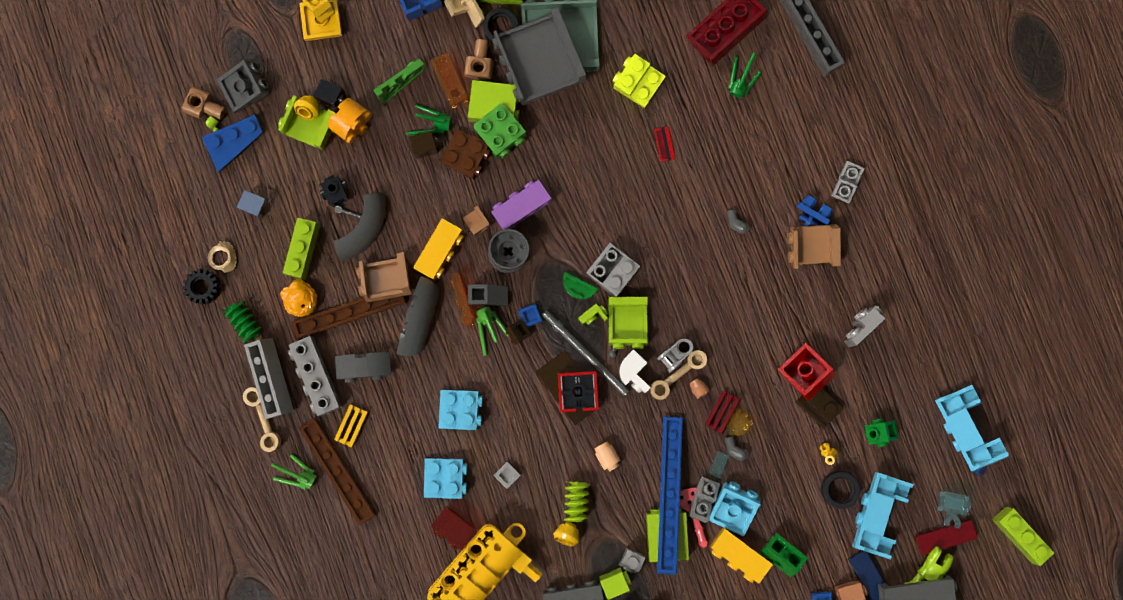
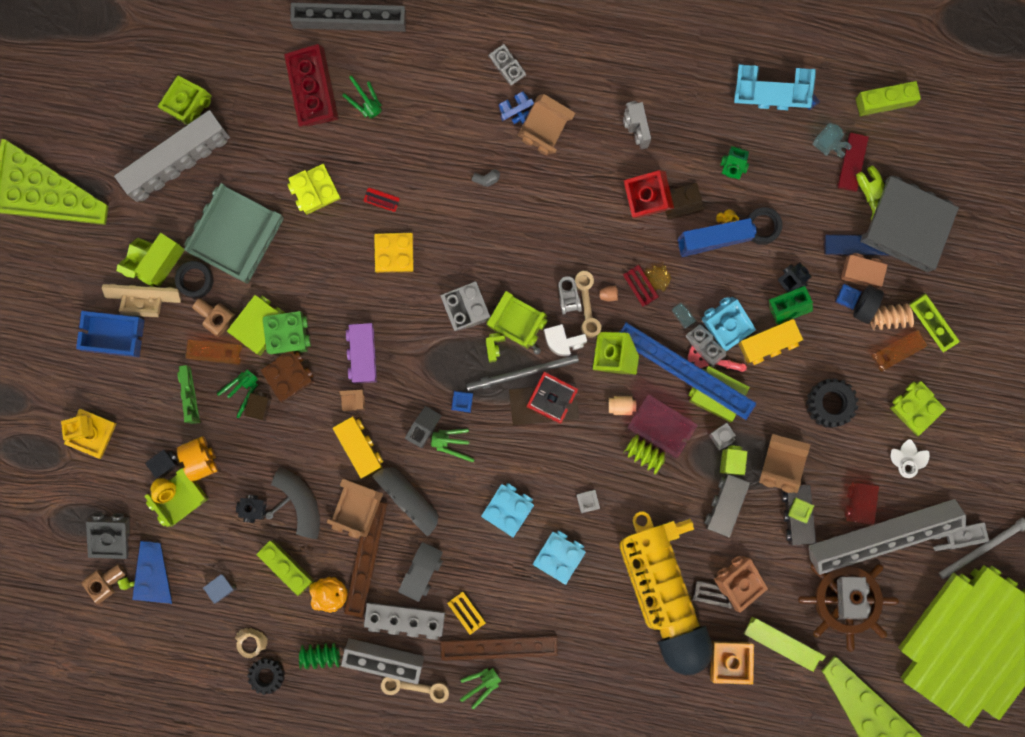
camera: 65 degrees left, 0 degrees up
(453, 528) = (607, 574): clear red brick -> none
(462, 300) = (414, 453): clear orange plate -> none
(507, 240) = (398, 376): dark grey wheel -> none
(518, 332) = (470, 420): dark brown tile -> none
(539, 58) = (243, 261): dark grey panel -> none
(567, 534) = (668, 478): yellow cone -> none
(578, 288) = (463, 346): green tile -> none
(608, 502) = (662, 426): none -> clear pink piece
(624, 181) = (394, 252): none -> yellow plate
(649, 424) = (615, 353): none -> lime slope
(734, 451) = (679, 295): dark grey arm -> none
(804, 453) = (715, 237): none -> blue slope
(810, 544) = (794, 277): none -> black brick
(875, 514) = (799, 207): medium azure bracket -> none

